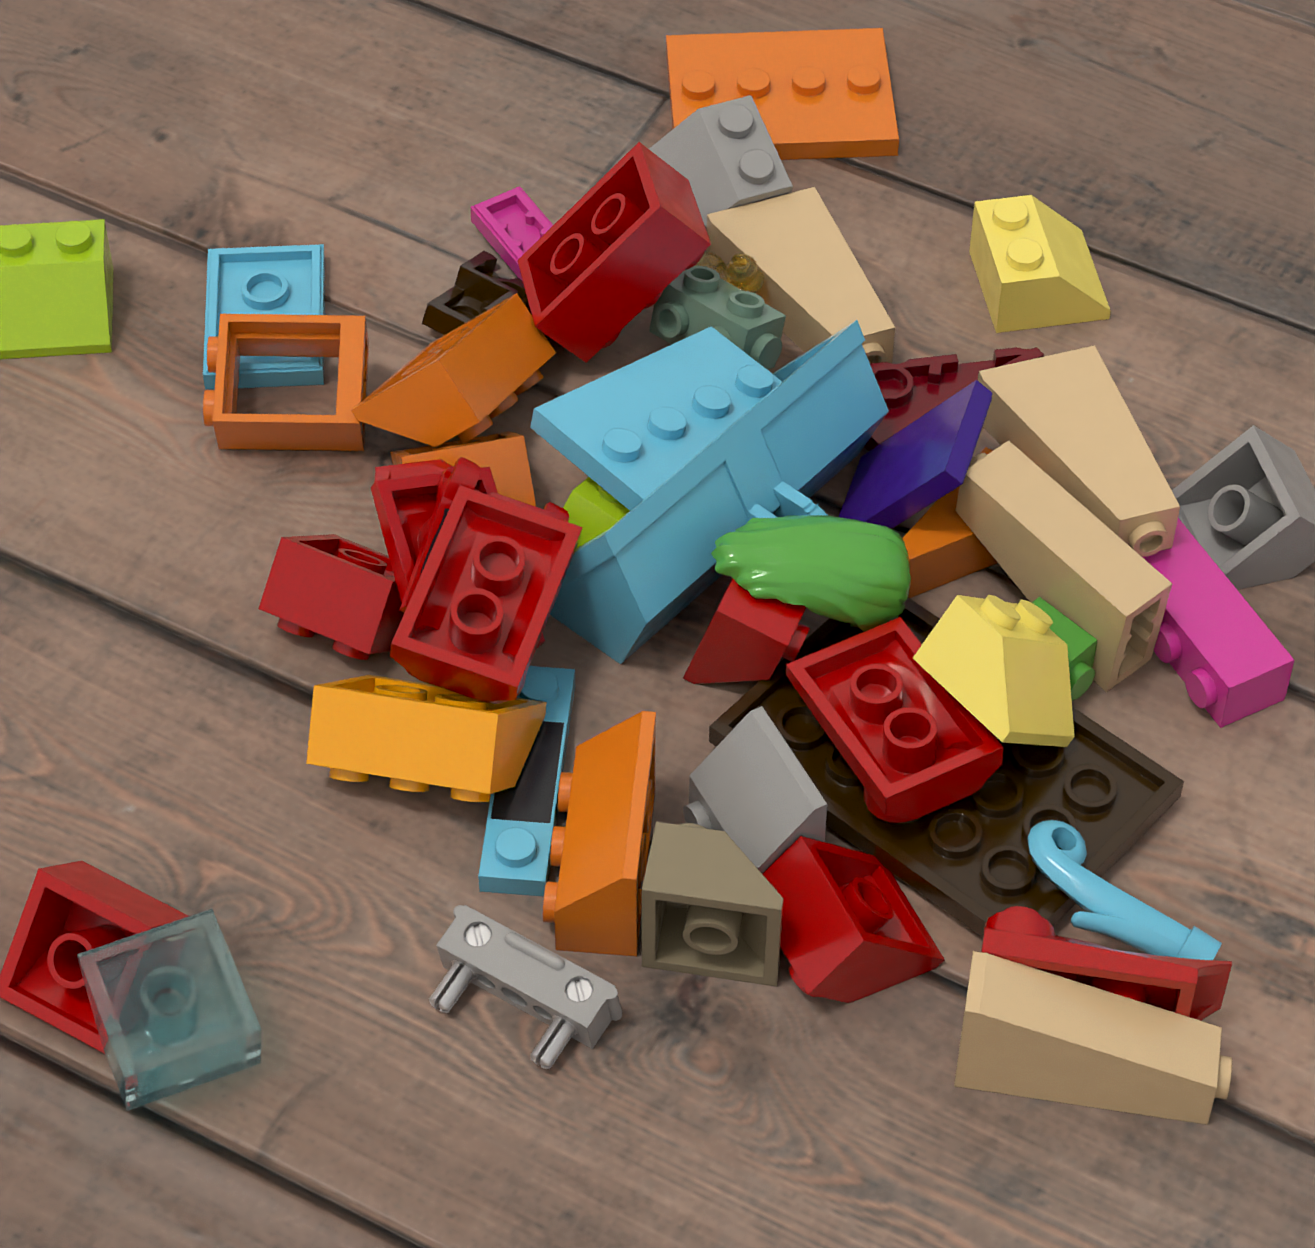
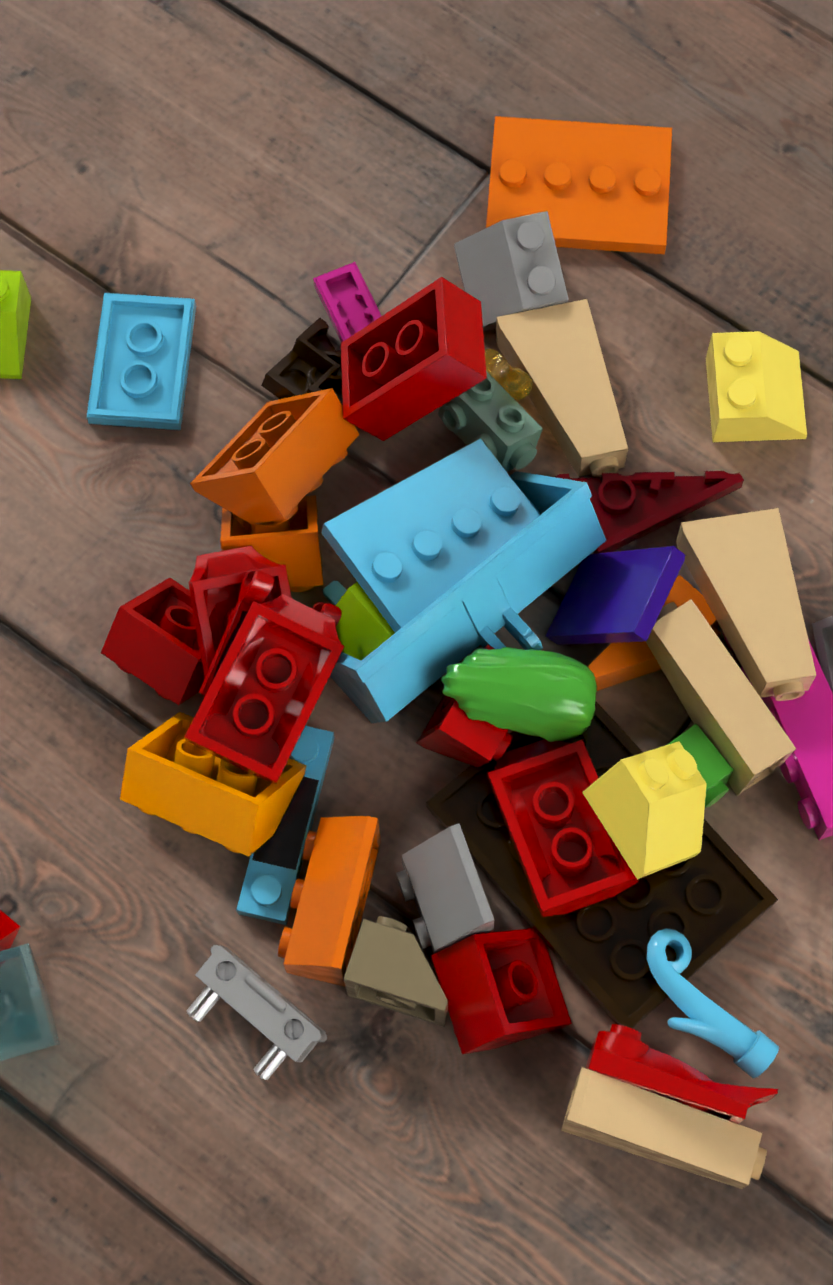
camera: 10 degrees right, 20 degrees up
(287, 337) = (197, 446): orange window -> none

